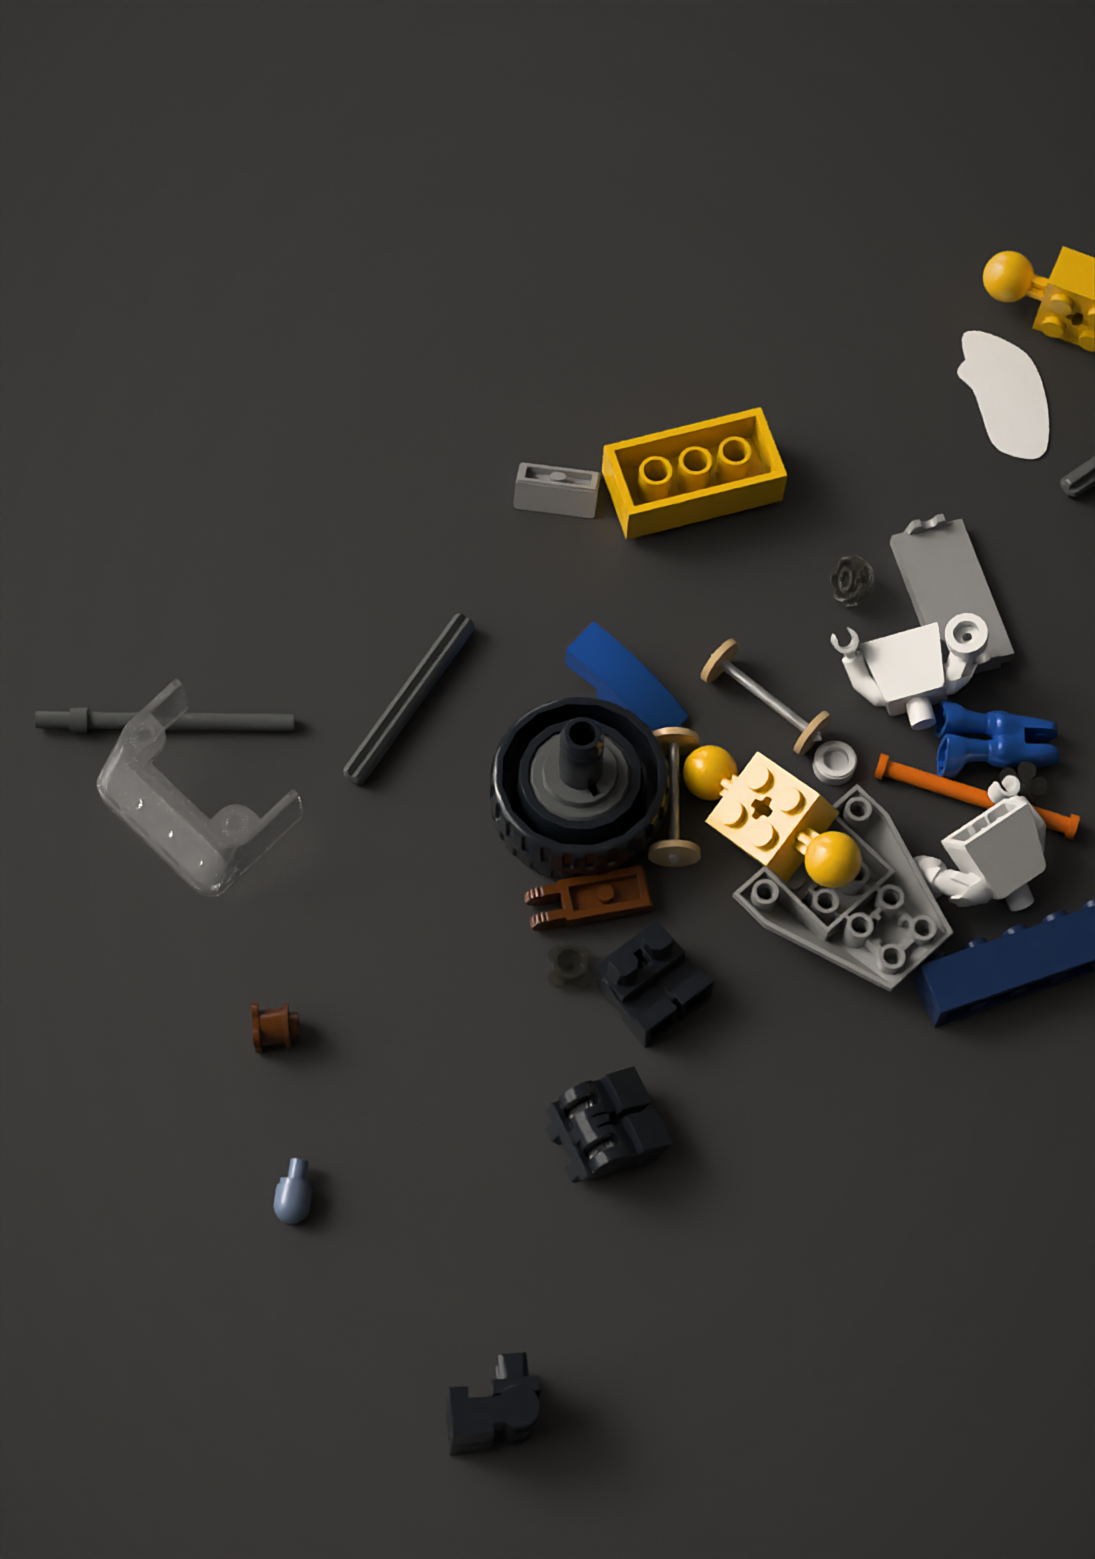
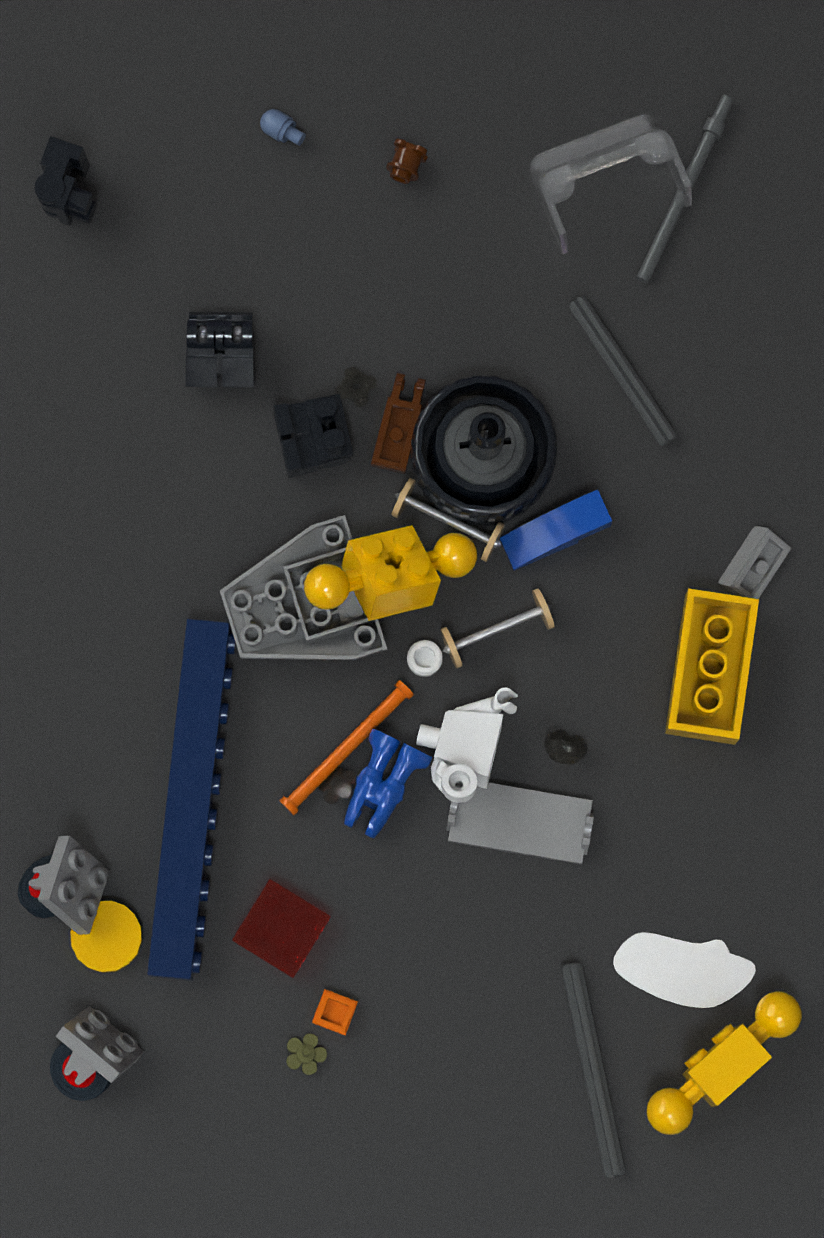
camera: 120 degrees right, 15 degrees up
(993, 852) = (288, 720): white torso -> none

